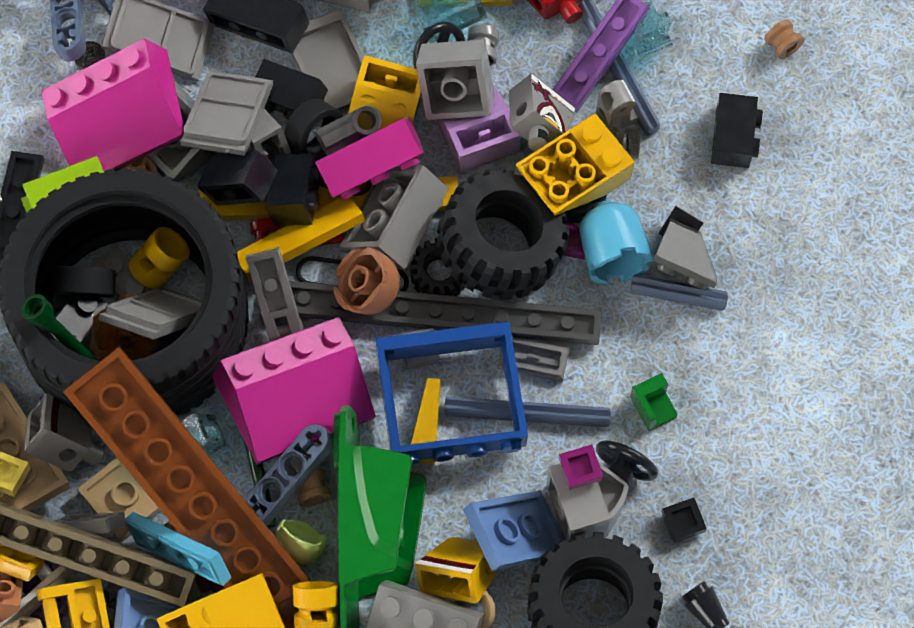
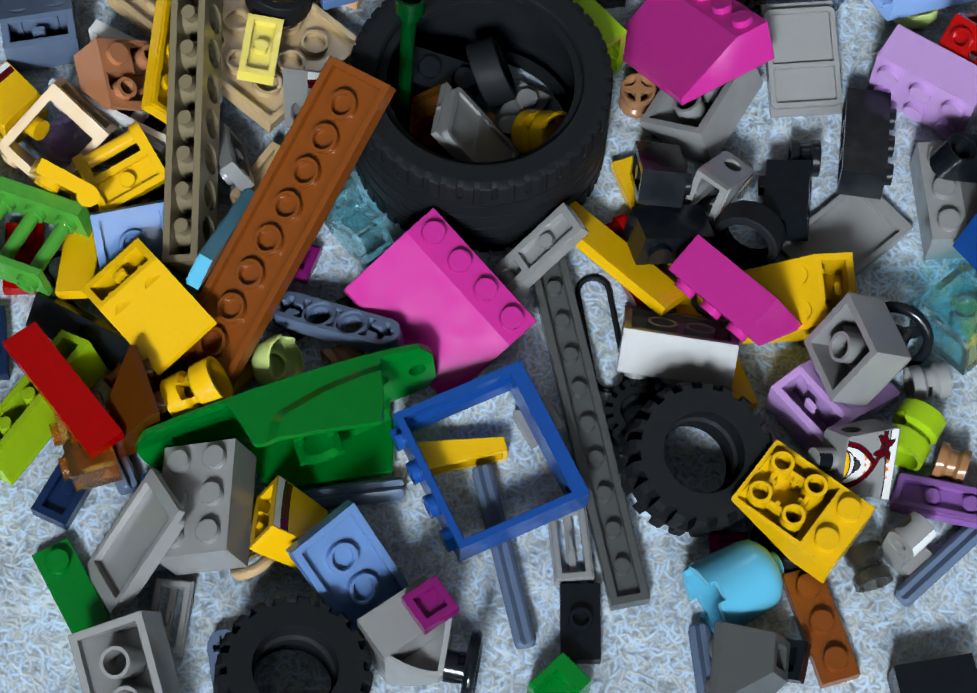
camera: 70 degrees right, 5 degrees down
(226, 113) = (726, 136): light grey piece -> none
(249, 62) = (803, 151): none -> black wheel
(346, 130) = (755, 261): flat silver piece -> none
(366, 281) = (585, 336): nougat cylinder -> none
(436, 511) = (358, 492): none -> sand blue axle
(519, 63) = (919, 427): none -> lime wheel
(556, 54) = (951, 463): none -> medium nougat wheel
(602, 371) = (580, 622): none -> black plate
(662, 195) = (820, 627): none -> dark orange plate

